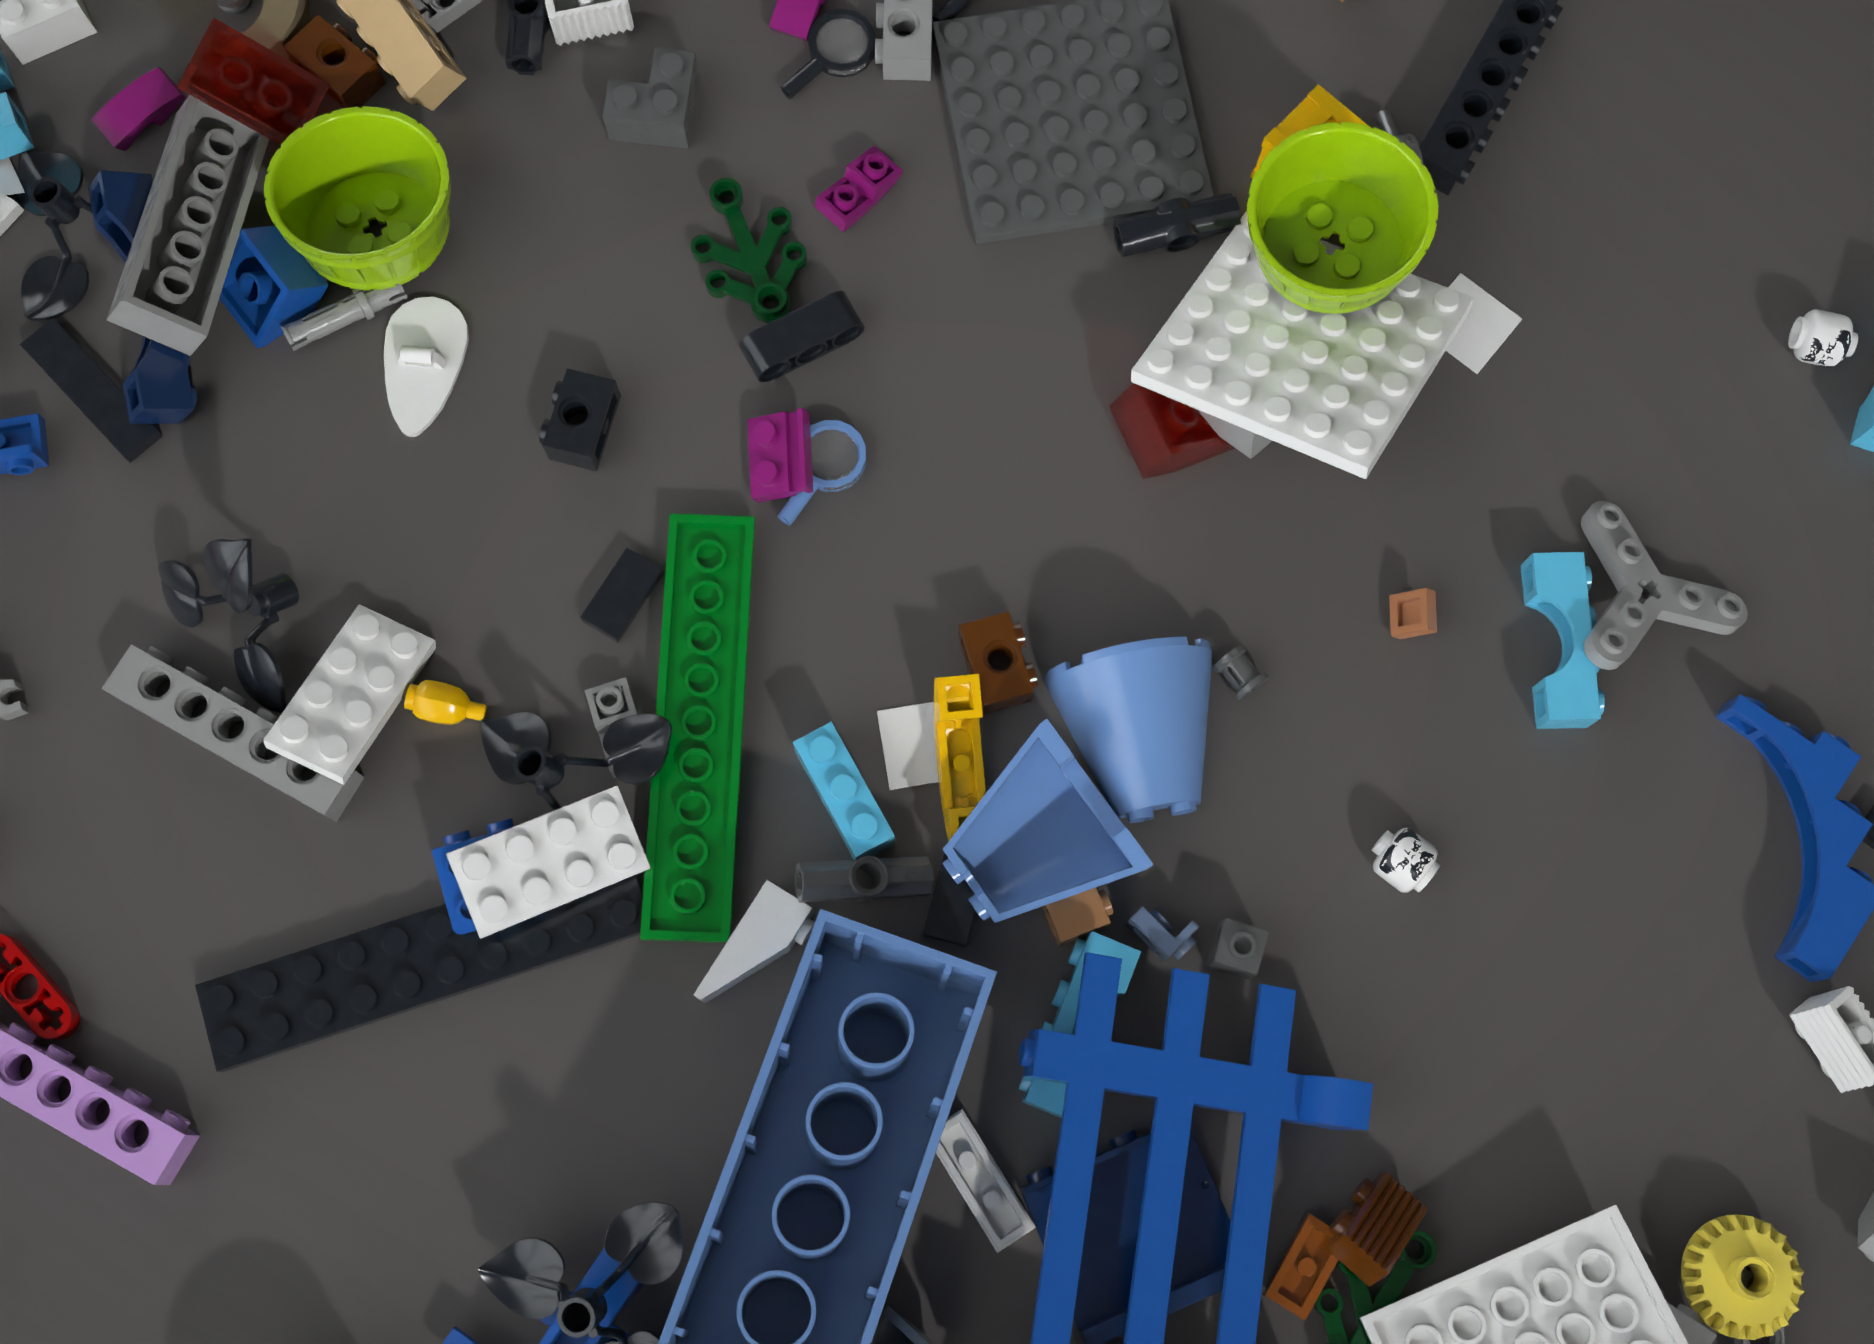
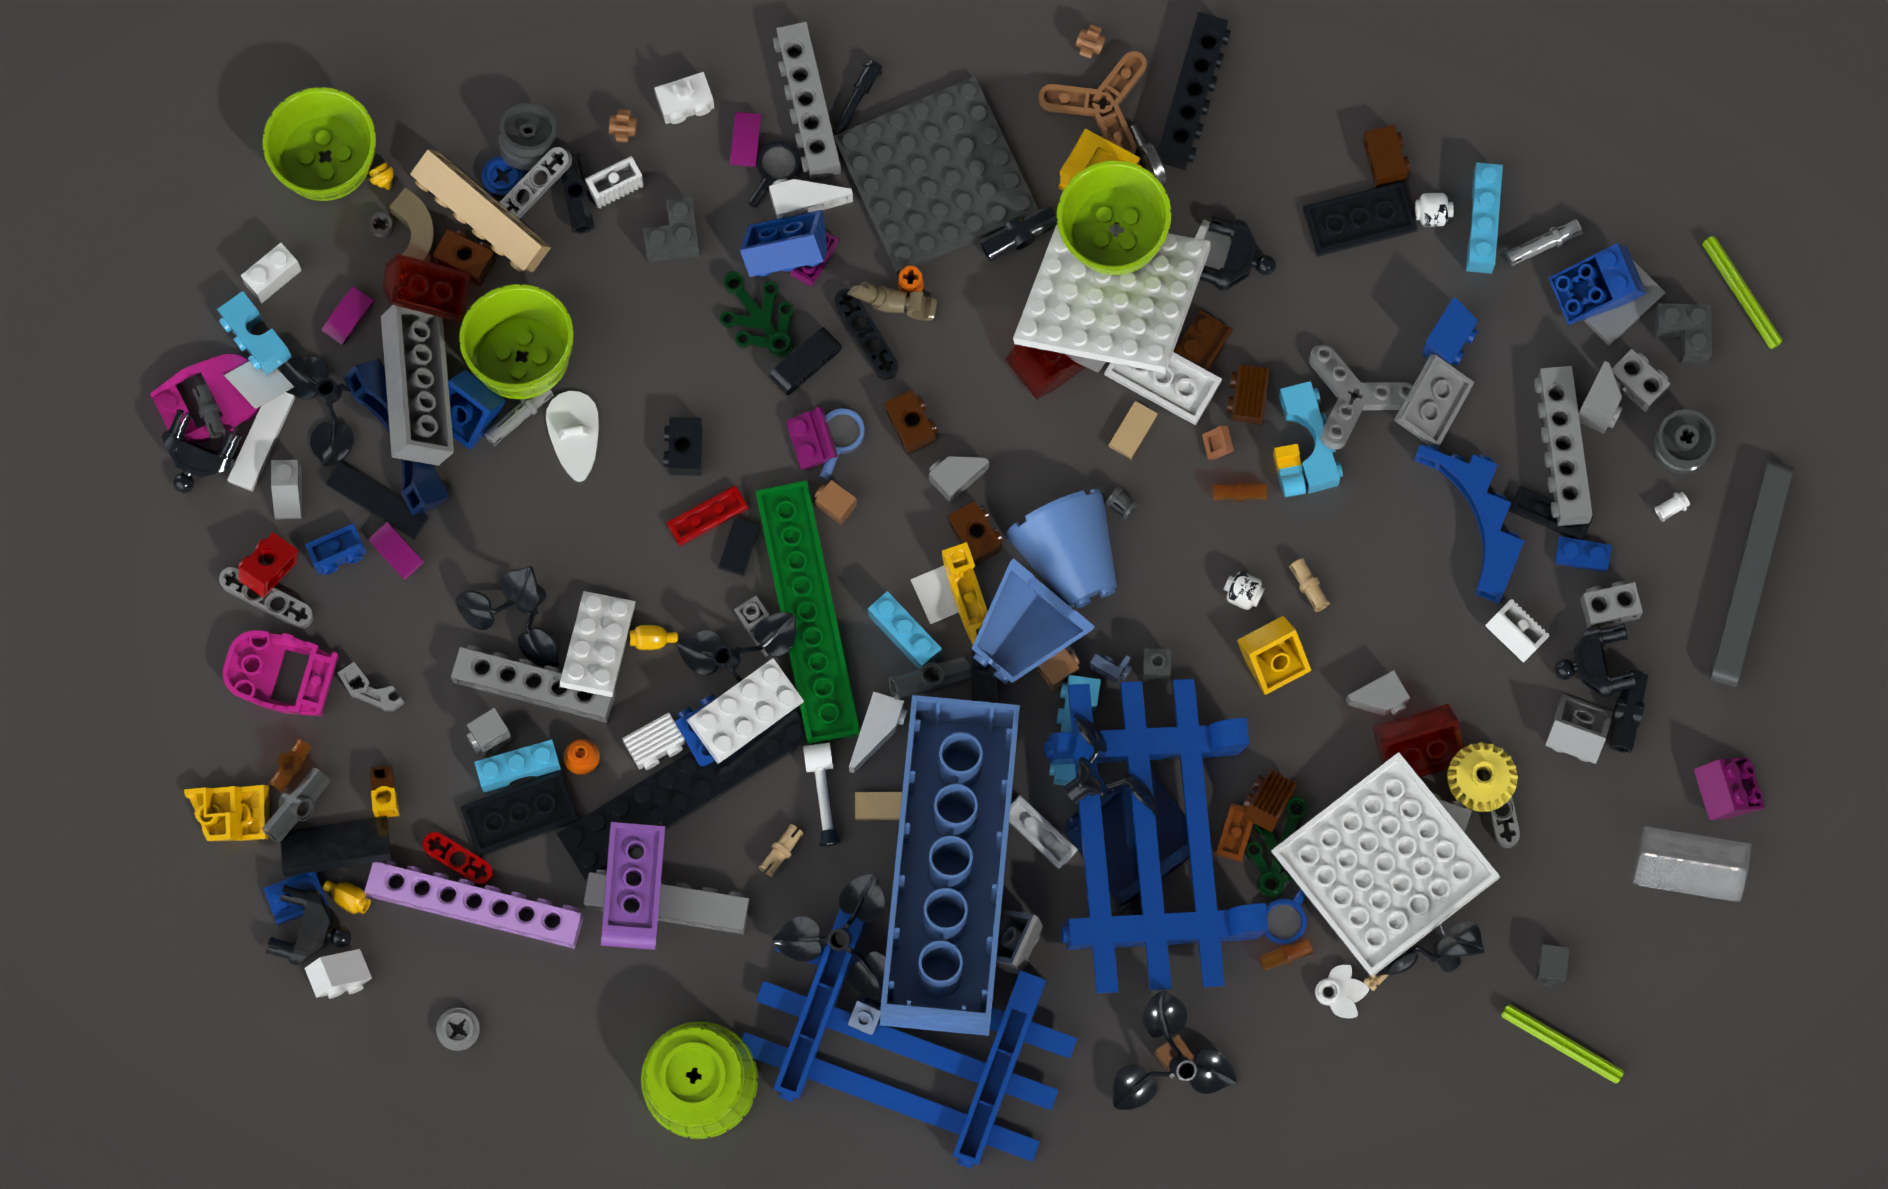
camera: 10 degrees left, 0 degrees up
(89, 473) = (396, 550): none -> magenta slope
(131, 794) = (488, 733): none -> light grey brick
(149, 857) = (504, 768): none -> medium azure arch
(150, 936) = (519, 813): none -> black tile
(226, 1174) = (618, 926): none -> medium lavender hinge
(285, 872) = (589, 760): none -> orange cone
(335, 1148) = (681, 904): none -> light grey brick
(393, 874) = (654, 742): none -> white brick
(548, 1106) = (781, 850): none -> tan pin
(587, 534) = (707, 515): none -> red tile
(650, 968) = (818, 760): none -> white piece
(723, 1067) = (877, 805): none -> tan tile
(789, 560) = (835, 502): none -> medium nougat brick
(816, 155) = (784, 244): none -> blue slope
(864, 98) = (801, 197): none -> white slope
(903, 320) = (866, 334): none -> black beam
(938, 490) = (911, 437): none -> reddish brown brick
(962, 279) = (895, 301): none -> dark tan piece
(990, 563) = (956, 474): none -> light grey slope
(994, 268) = (910, 271): none -> orange bush
(1079, 1136) = (1090, 782): none -> black plant
(1282, 562) = (1133, 430): none -> tan tile
(1367, 52) = (1113, 89): none -> medium nougat piece
(1370, 516) = (1181, 390): none -> white plate
(1421, 453) = (1203, 340): none -> reddish brown plate
(1430, 699) = (1239, 491): none -> clear orange pin
(1433, 978) = (1274, 655): none -> yellow slope
(1478, 550) = (1249, 394): none -> reddish brown brick
(1507, 338) = (1239, 257): none -> black connector
(1512, 877) = (1309, 585): none -> tan pin
(1518, 684) = (1289, 470): none -> leg
(1597, 1092) = (1381, 696): none -> light grey slope
(1658, 1183) = (1423, 739): none -> clear red slope
(1701, 327) = (1359, 218): none -> black tile
(1762, 242) = (1385, 155): none -> reddish brown brick
(1771, 630) = (1434, 401): none -> light grey tile
(1818, 534) = (1452, 333): none -> blue slope

